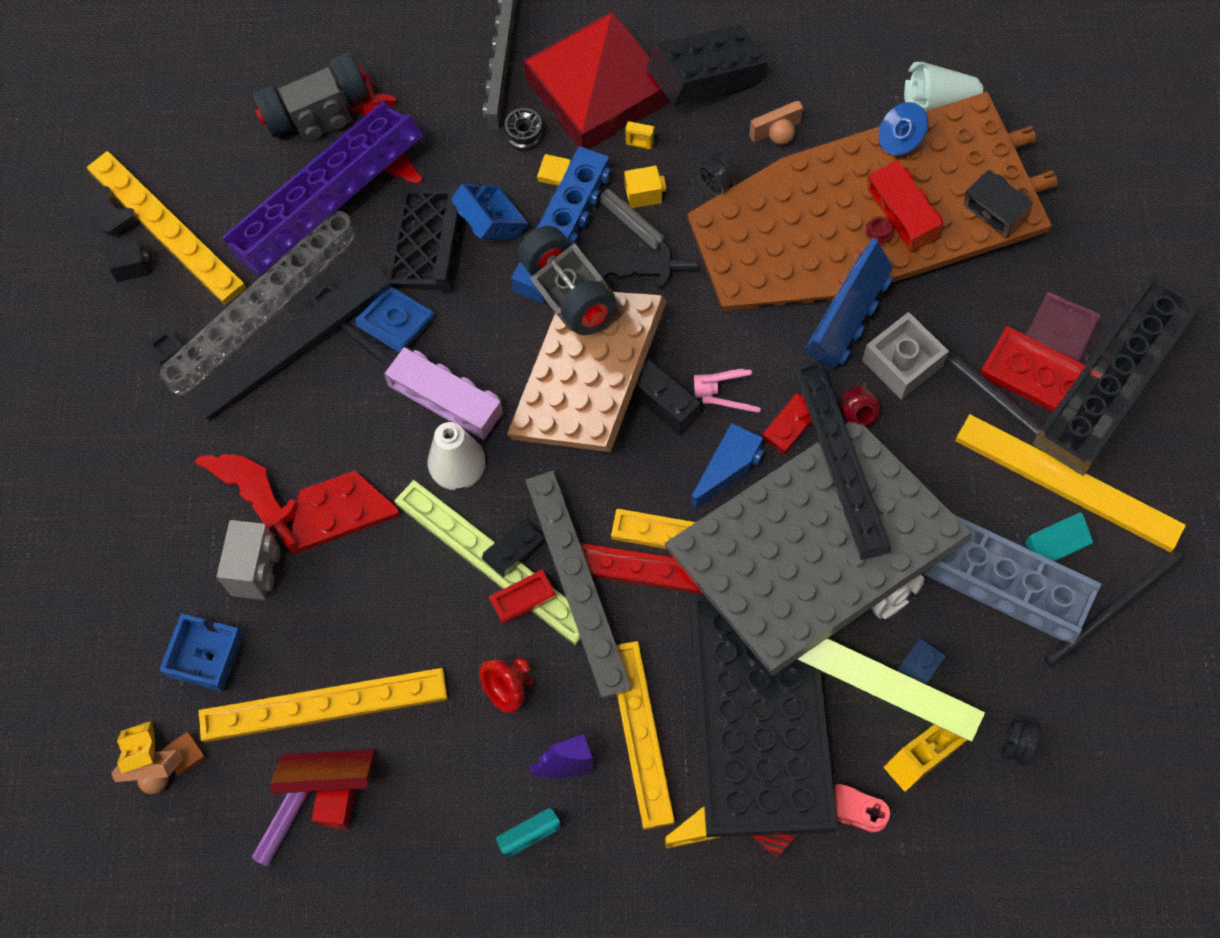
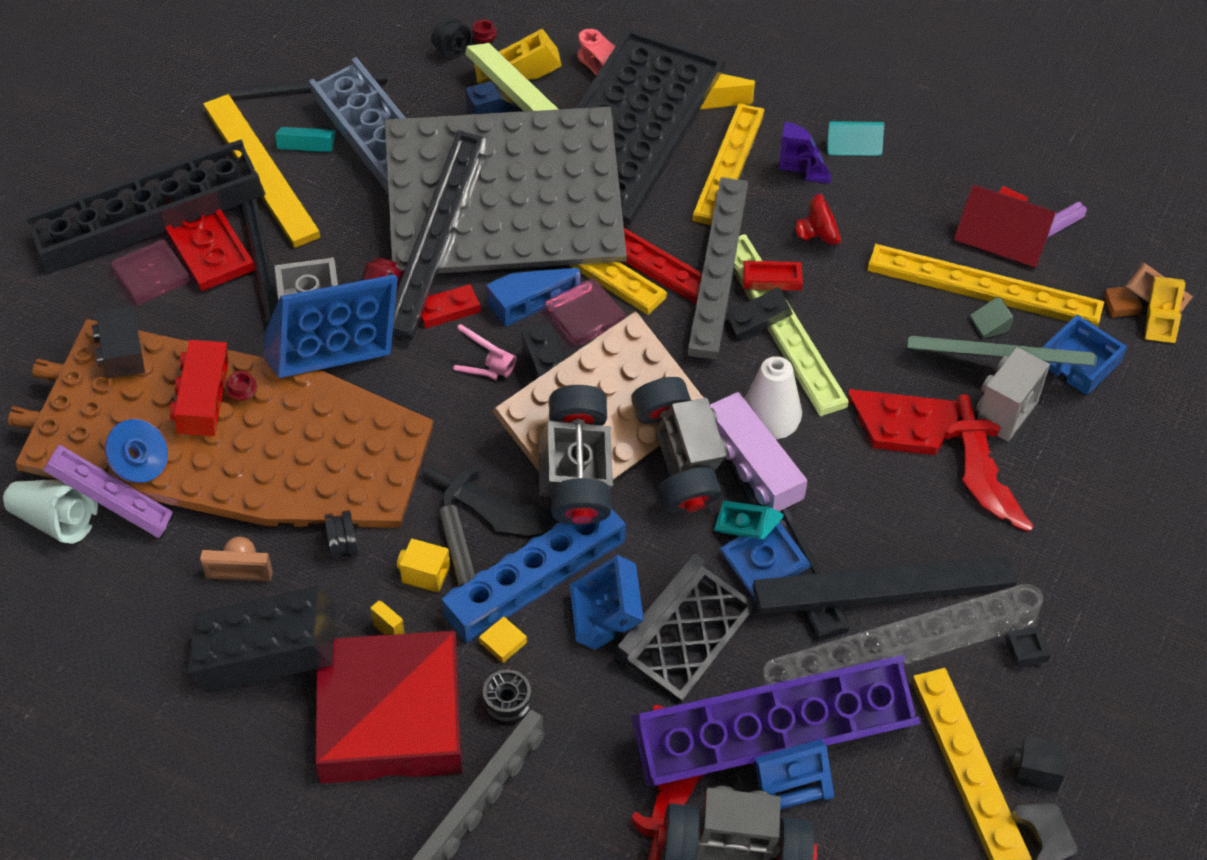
camera: 155 degrees left, 15 degrees down
(271, 600) = (1000, 350): none -> sand green tile
(288, 167) = (795, 768): none -> blue plate
(302, 661) = (992, 319): none -> sand green slope
(421, 336) = (746, 520): none -> teal slope
(479, 341) = (687, 441): none -> brick
(669, 479) = (584, 311): none -> clear pink tile
(924, 92) = (108, 491): none -> medium lavender tile
(1000, 782) = (484, 31): none -> dark red plate

